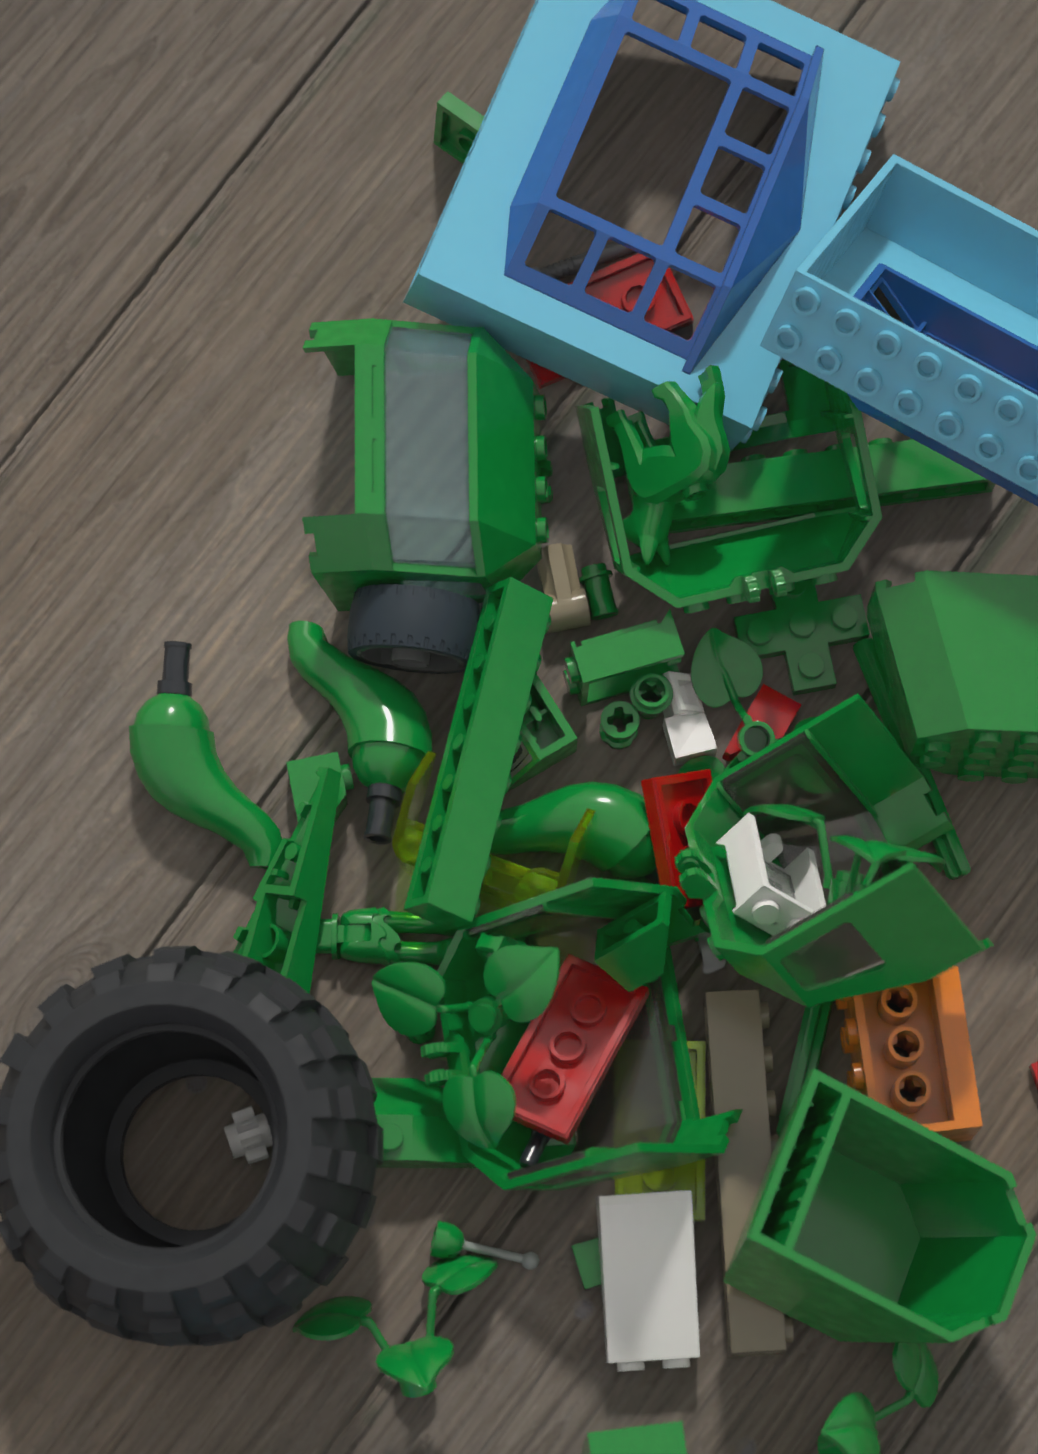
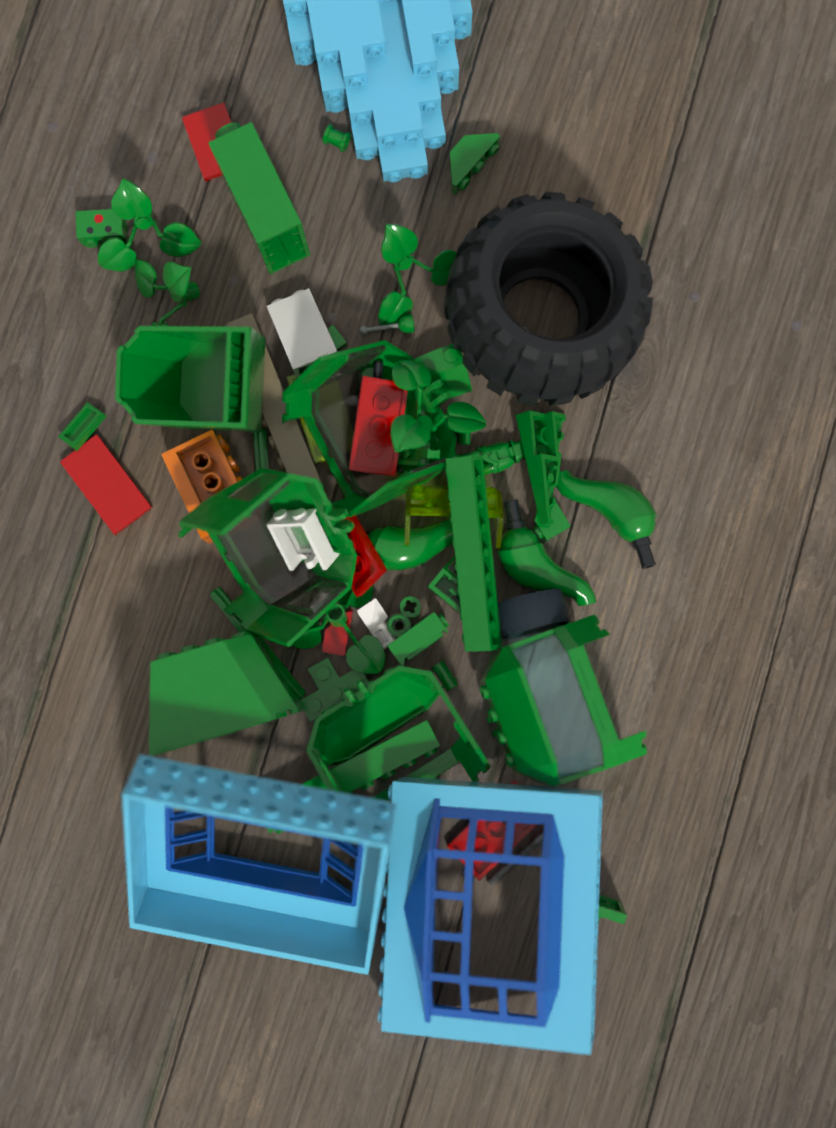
camera: 170 degrees right, 10 degrees up
(561, 581) = (462, 665): dark tan piece -> none
(636, 943) = (361, 482): green slope -> none
(674, 472) = (423, 746): green animal -> none
(872, 850) = (263, 554): green plant -> none

